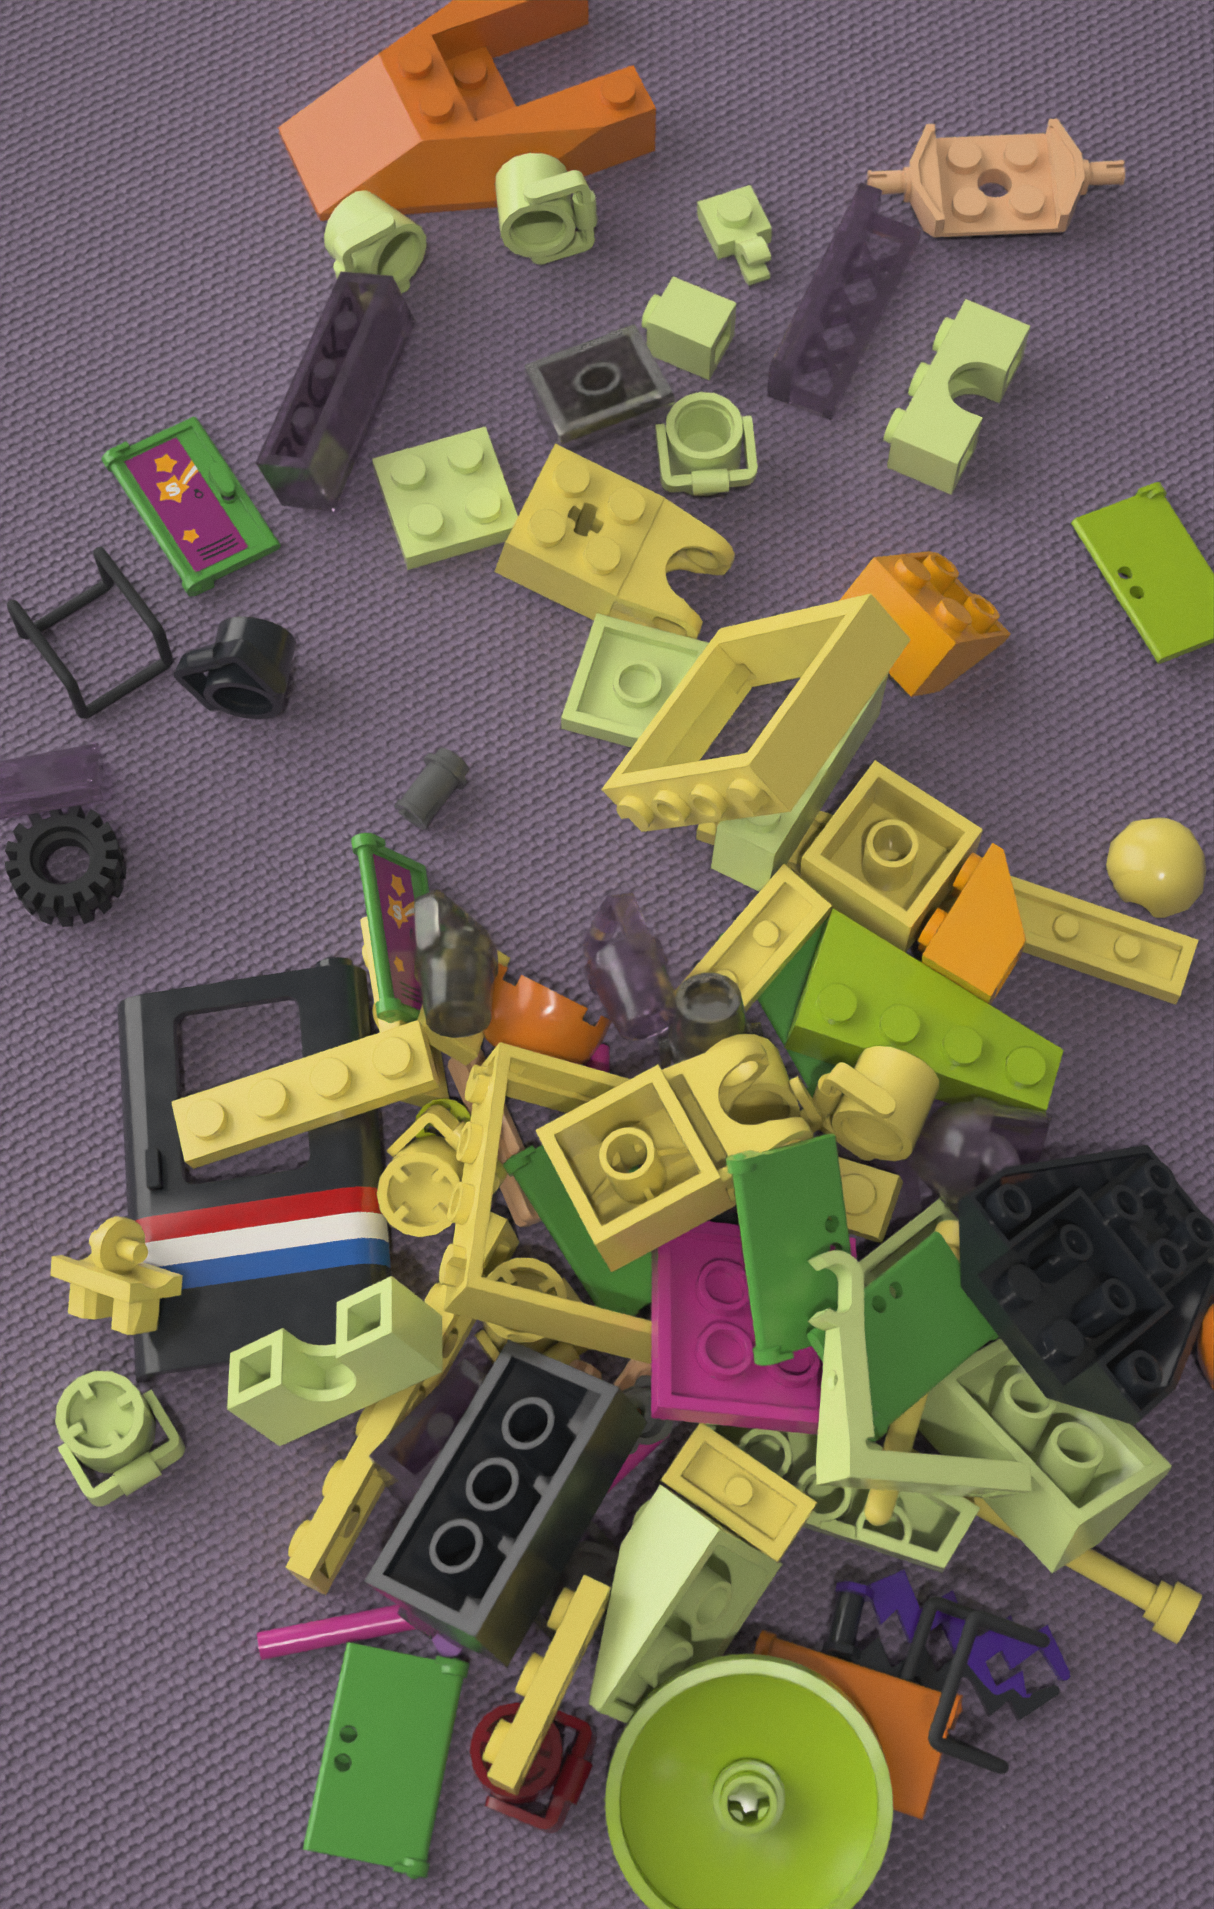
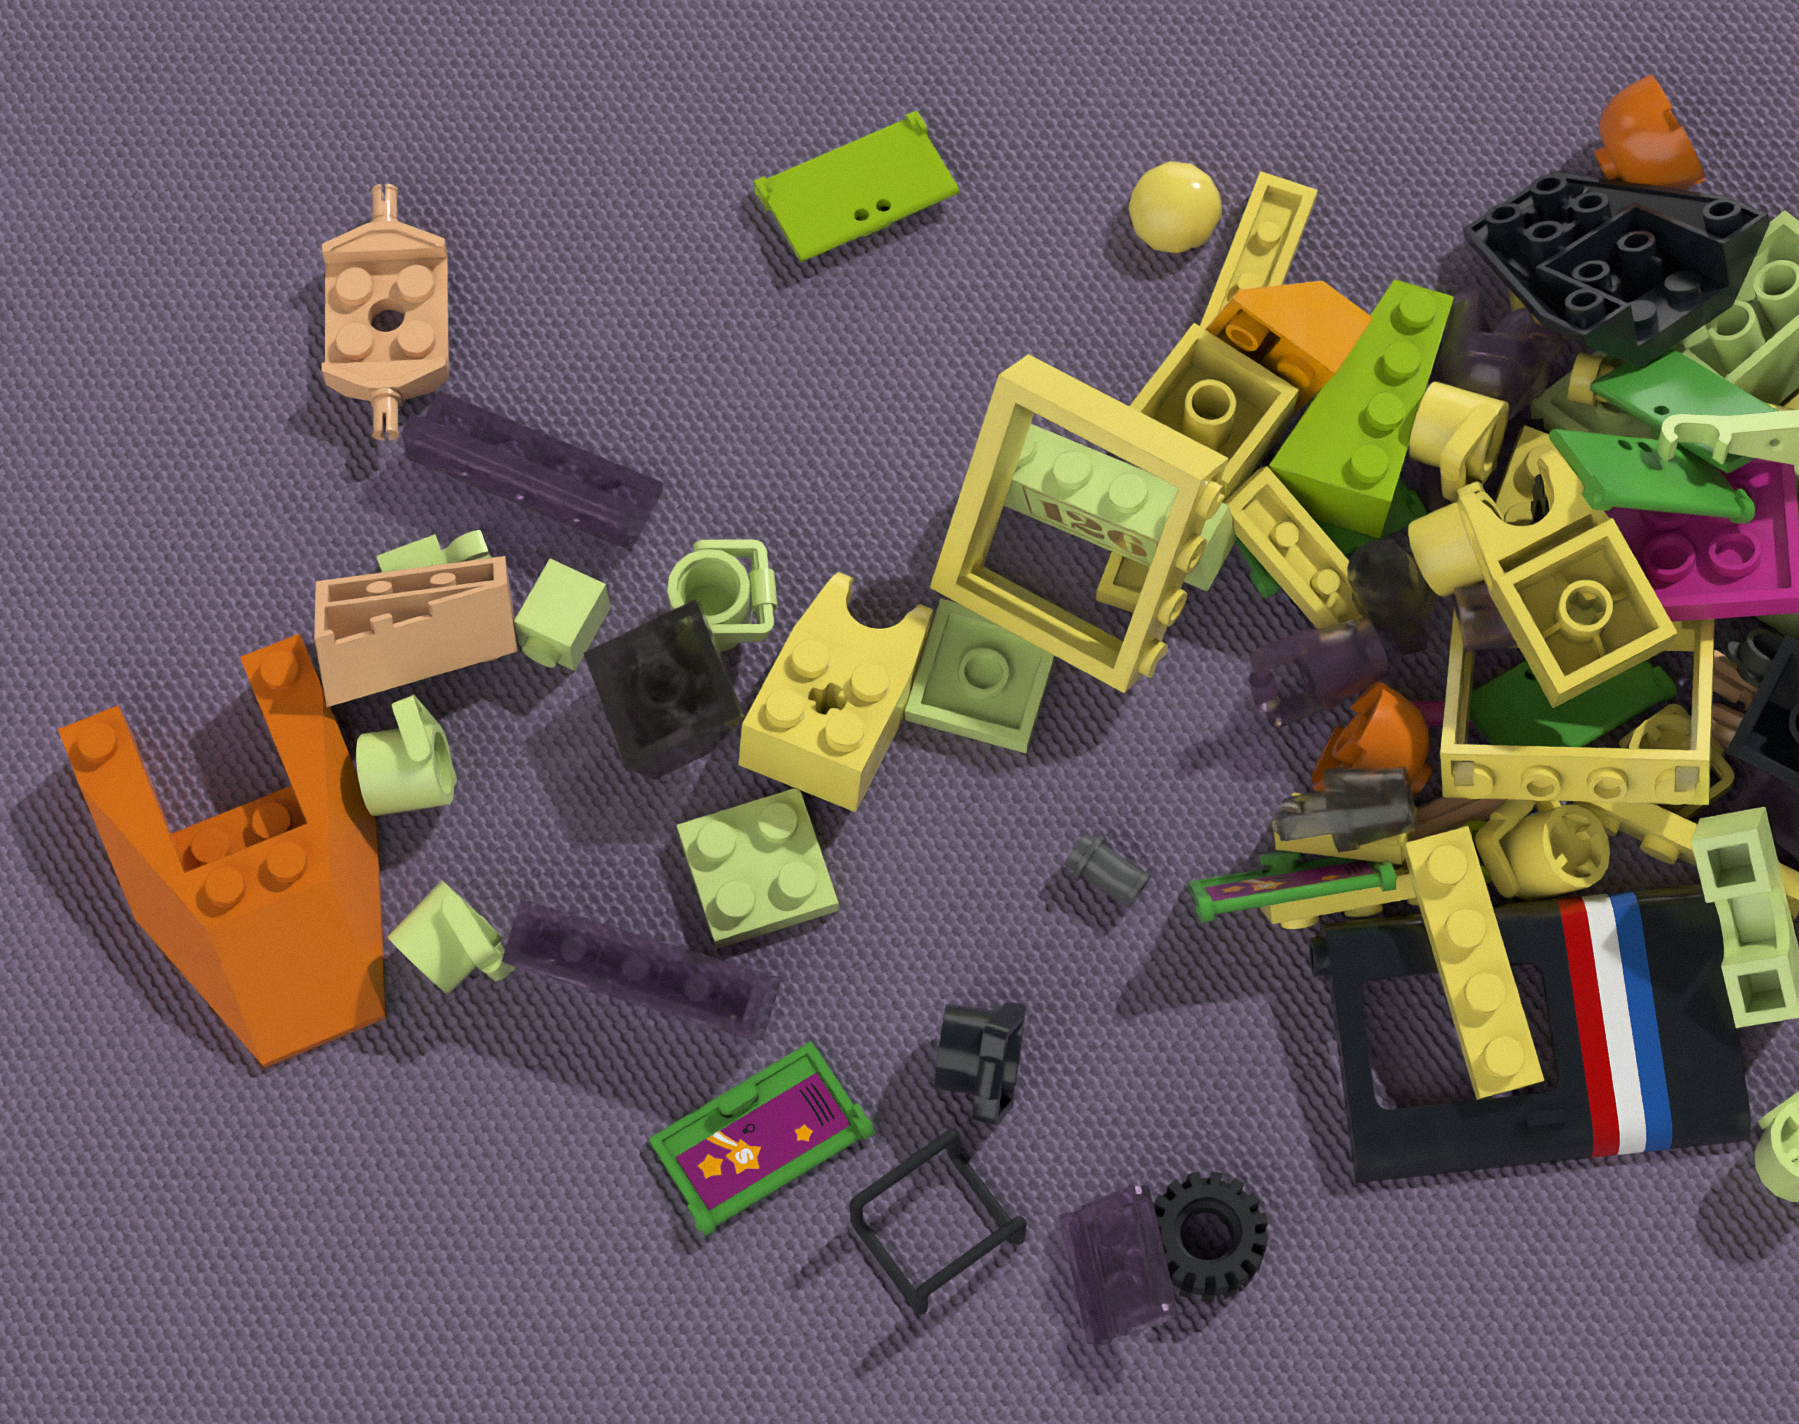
camera: 90 degrees left, 0 degrees up
(116, 1279) = (1663, 1139): light yellow hips -> none
(666, 190) = (410, 625): none -> light nougat wedge
(938, 613) = (916, 400): light orange slope -> none
(973, 356) = (694, 386): yellowish green arch -> none

